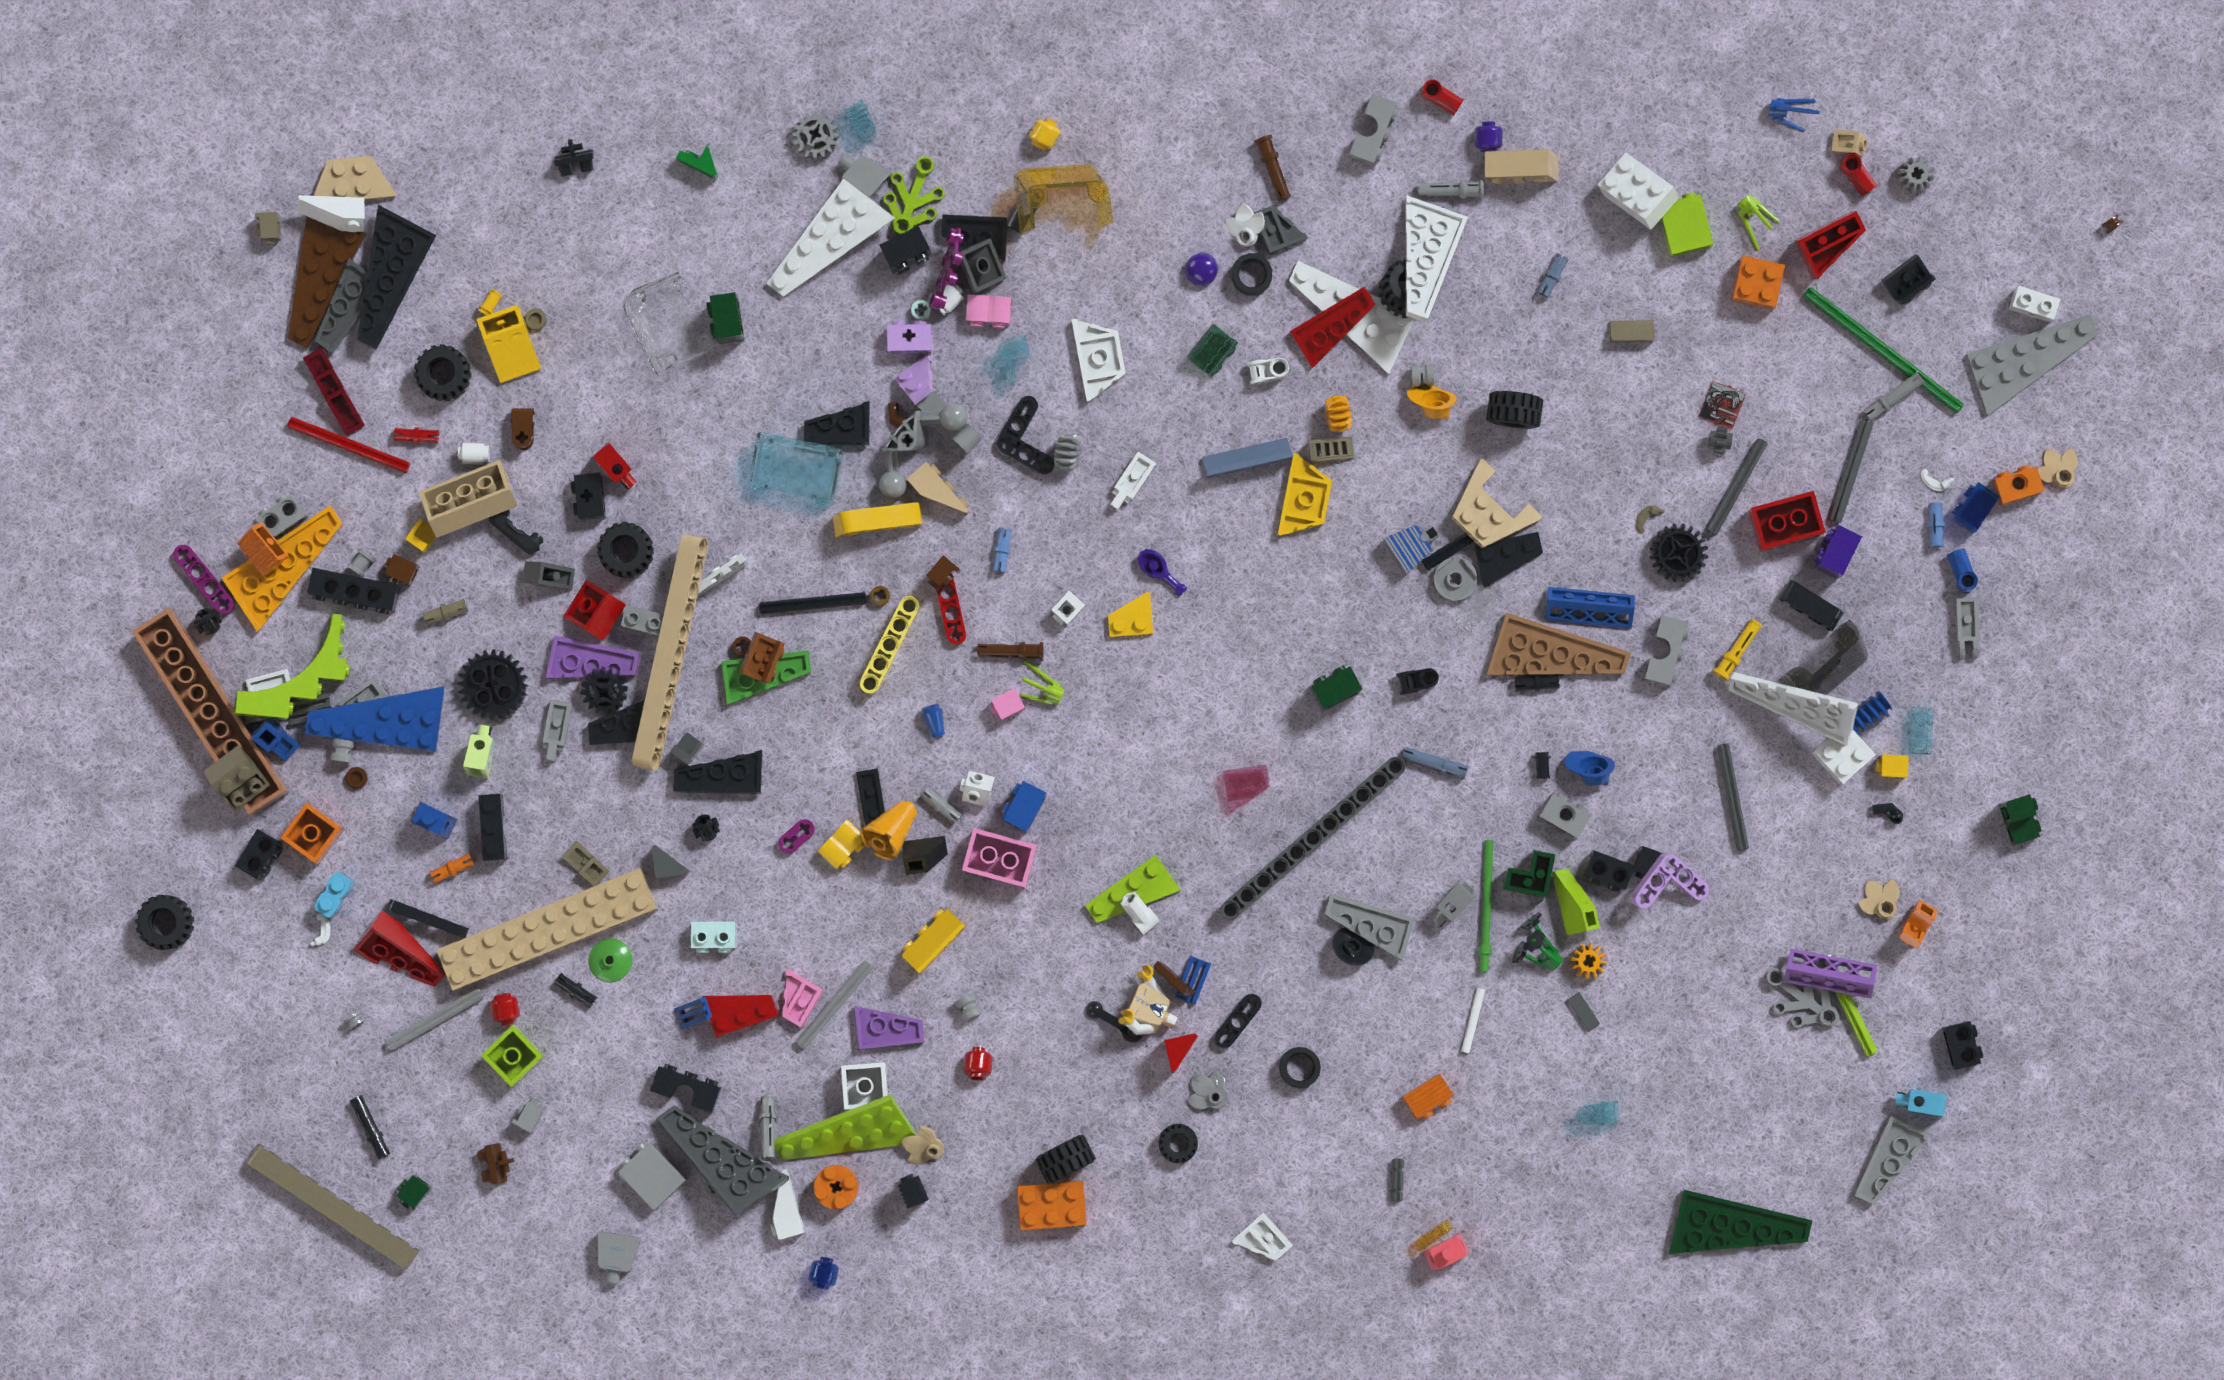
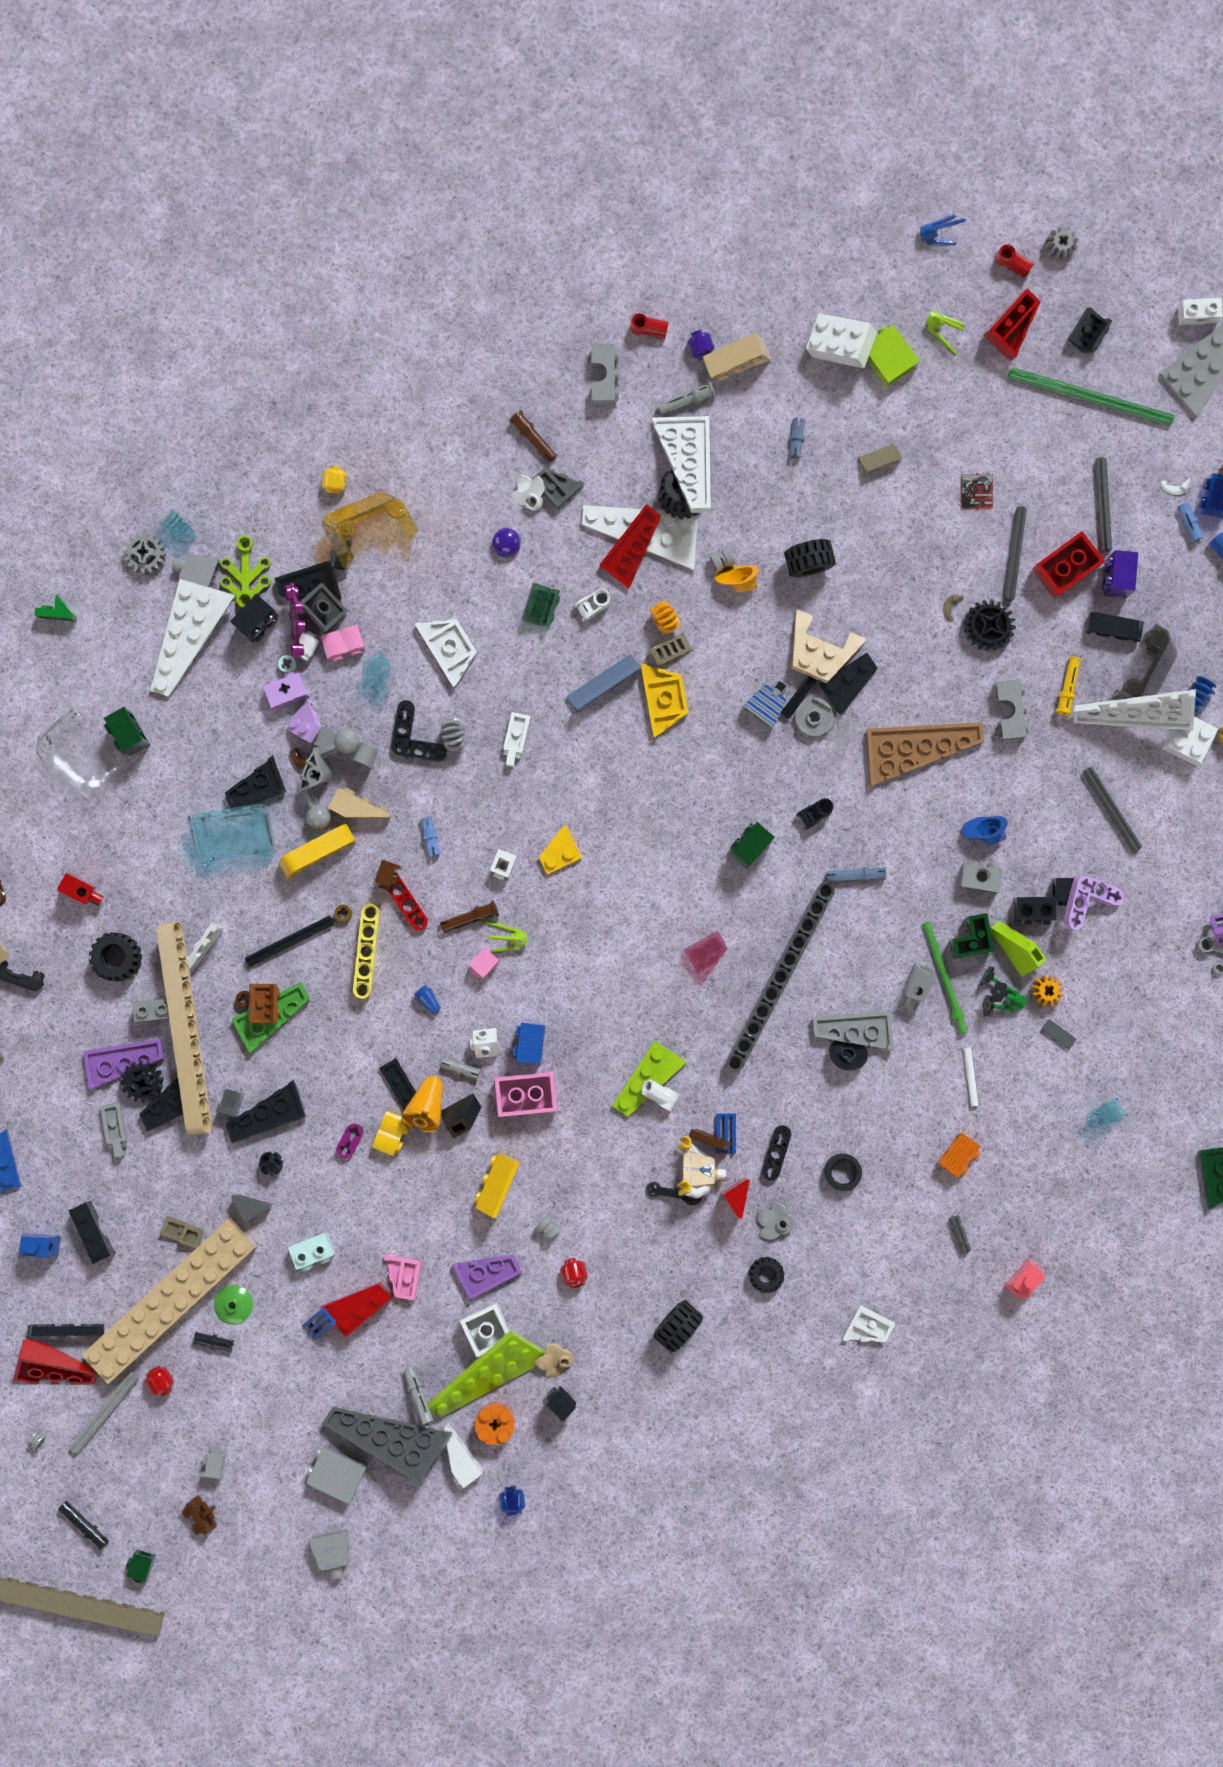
camera: 25 degrees left, 0 degrees up
(452, 868) = (71, 1279): orange pin -> none
(473, 689) = (31, 1122): black gear -> none
(478, 762) = (56, 1181): yellowish green torso -> none
(513, 1056) = (181, 1418): lime brick -> none
(548, 575) = (59, 1002): dark grey slope -> none
(594, 610) = (109, 1017): red slope -> none
(596, 507) = (77, 930): black brick -> none
(705, 1092) = (354, 1386): black arch -> none
(834, 1004) = (435, 1269): light grey axle -> none
(1052, 1205) = (681, 1369): orange brick -> none
(1155, 566) = (562, 801): dark purple piece -> none
(1251, 257) = (549, 516): black tyre -> none
(1433, 1235) = (1008, 1269): clear yellow beam -> none
(1537, 683) = (915, 777): black pin -> none
(1542, 764) = (945, 843): black pin -> none
(1591, 603) = (934, 694): blue fence -> none
(1720, 440) = (987, 519): dark grey gear -> none
(1758, 282) = (967, 379): orange brick -> none
(1849, 142) = (996, 237): tan bracket -> none
(1895, 395) = (1111, 436): light grey pin -> none

